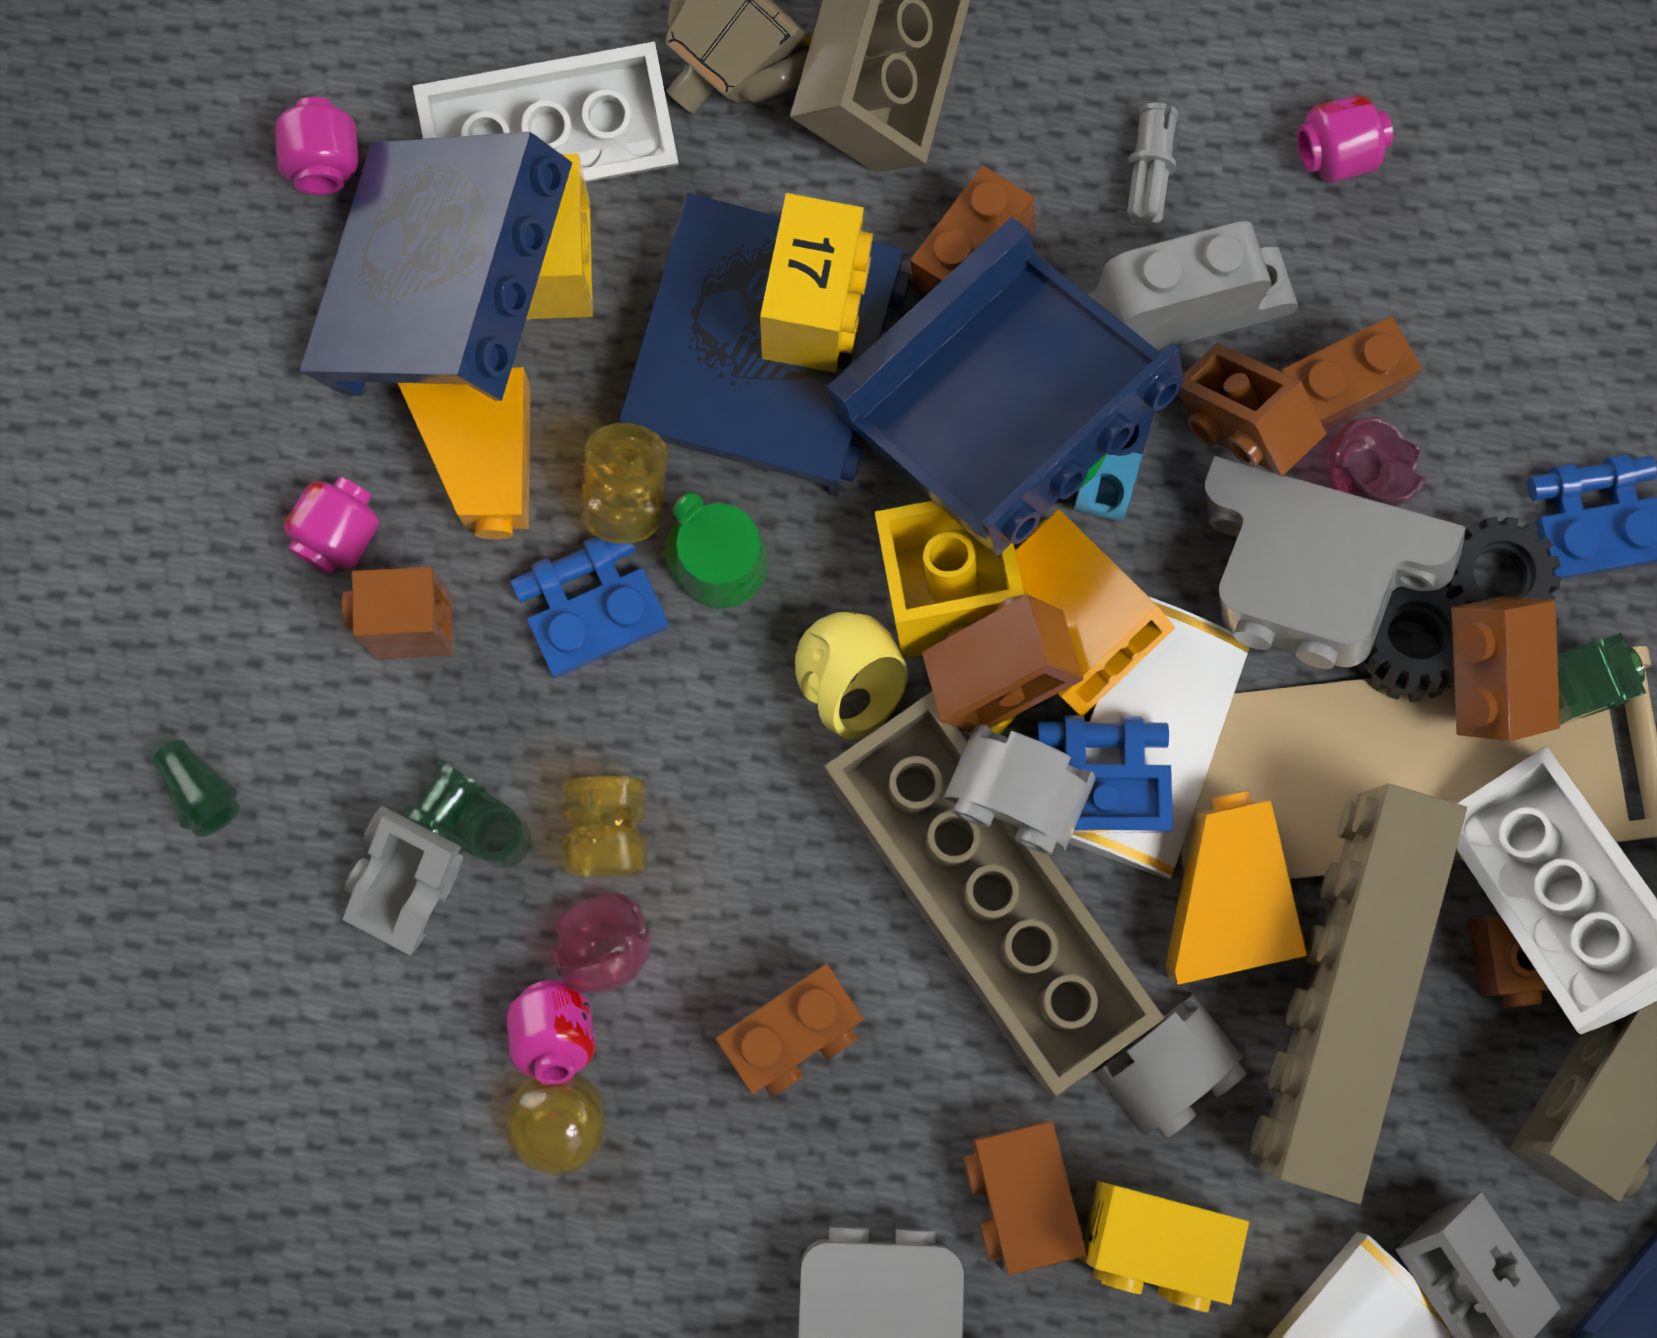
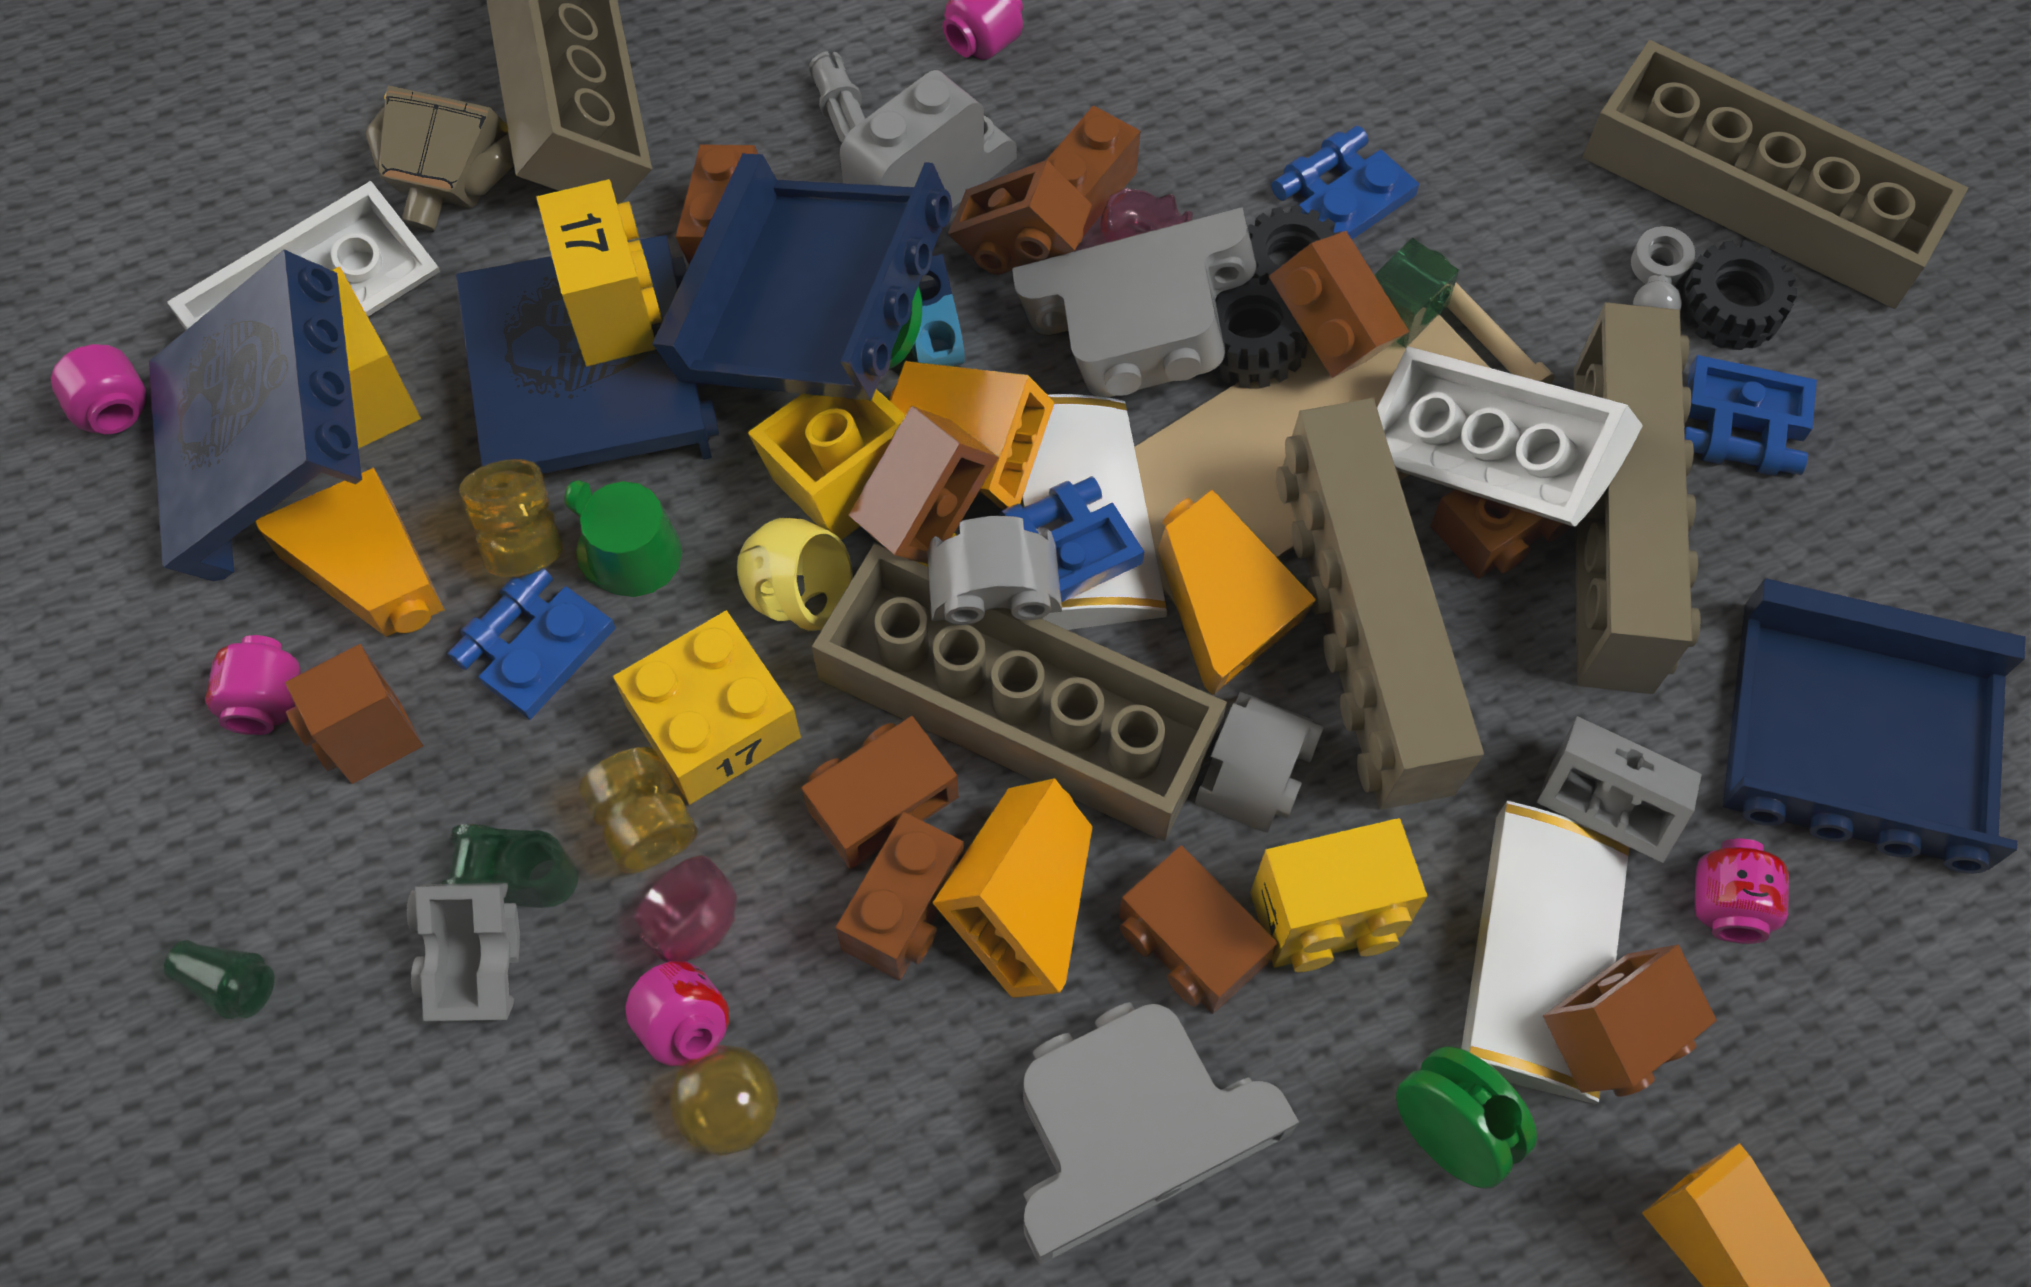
camera: 25 degrees left, 15 degrees down
(709, 760) = (708, 706): none -> yellow brick
(821, 918) = (869, 790): none -> dark orange brick
(897, 1079) = (1022, 888): none -> light orange slope

